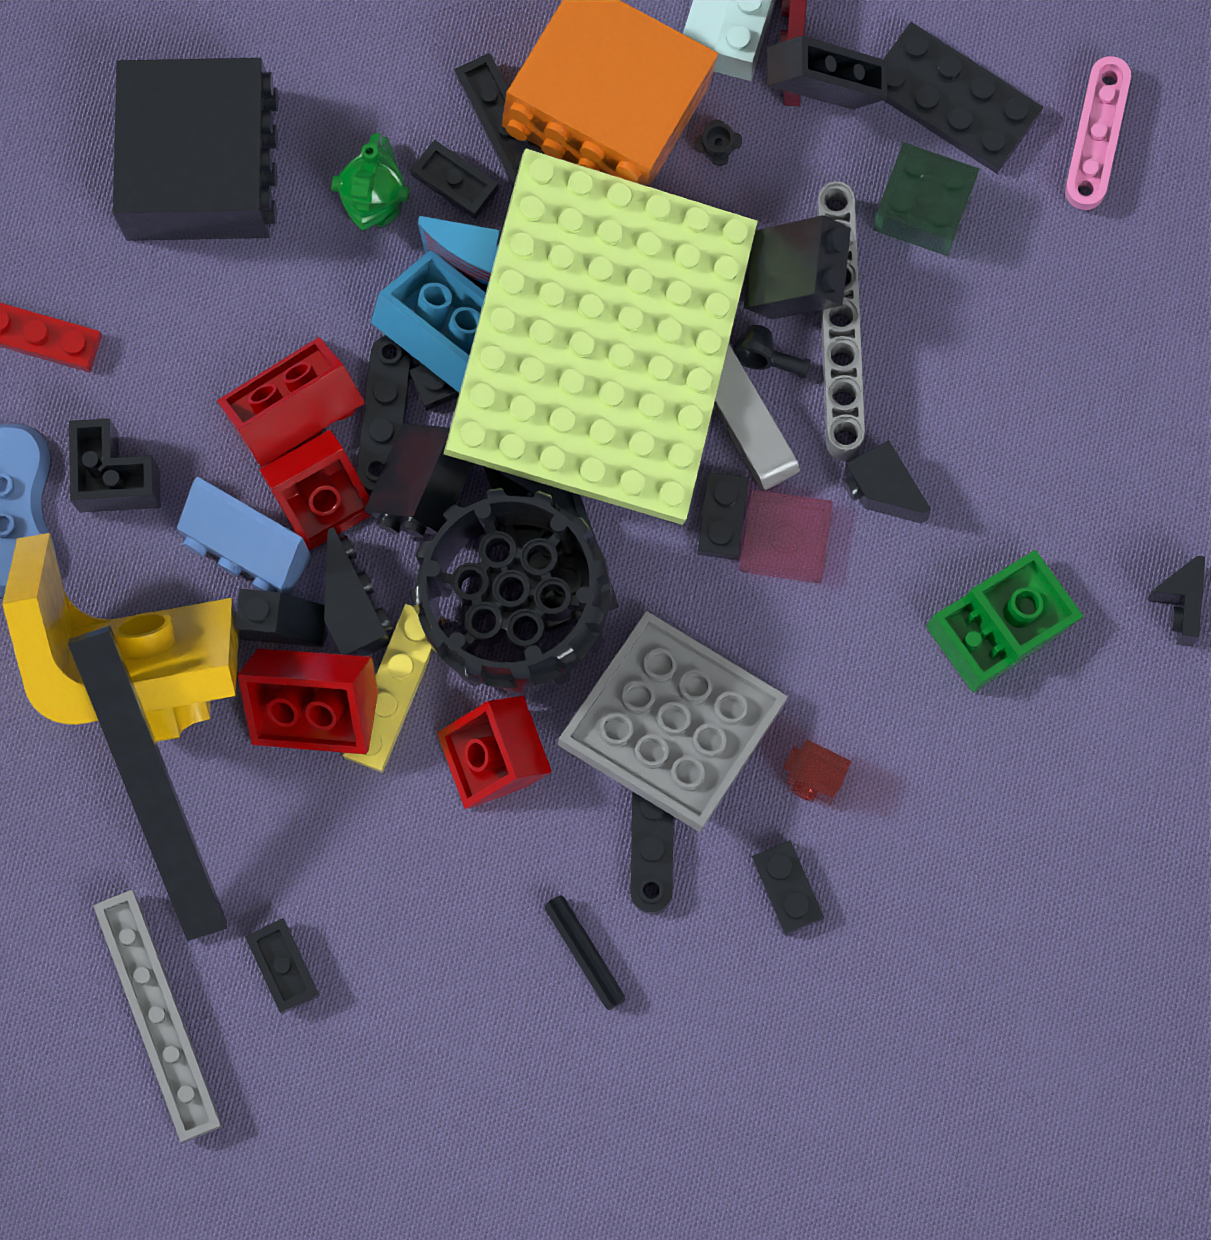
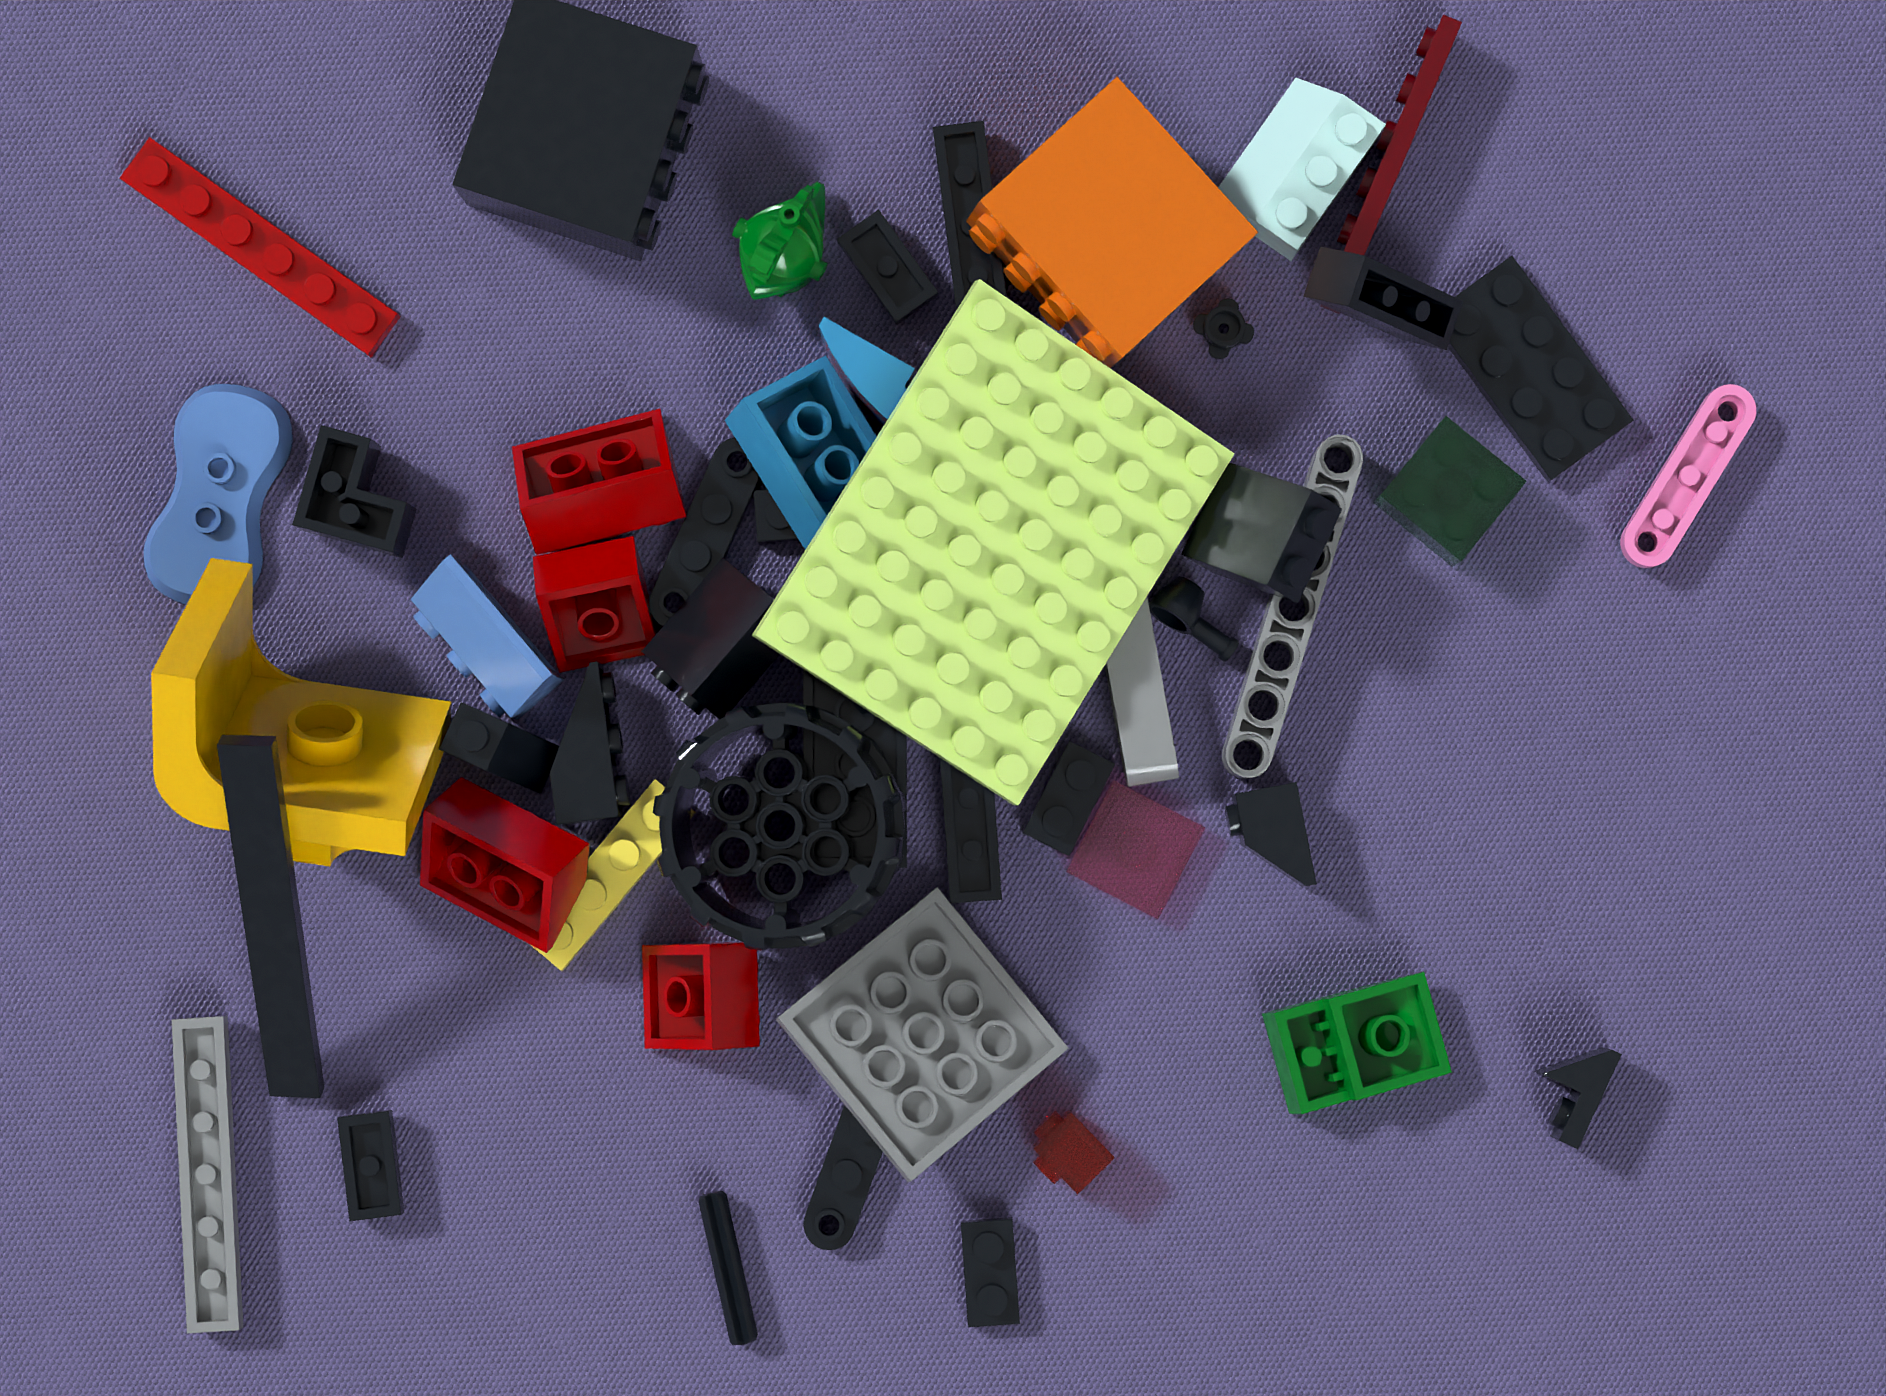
camera: 15 degrees right, 10 degrees up
(656, 562) = (970, 838): none -> black plate

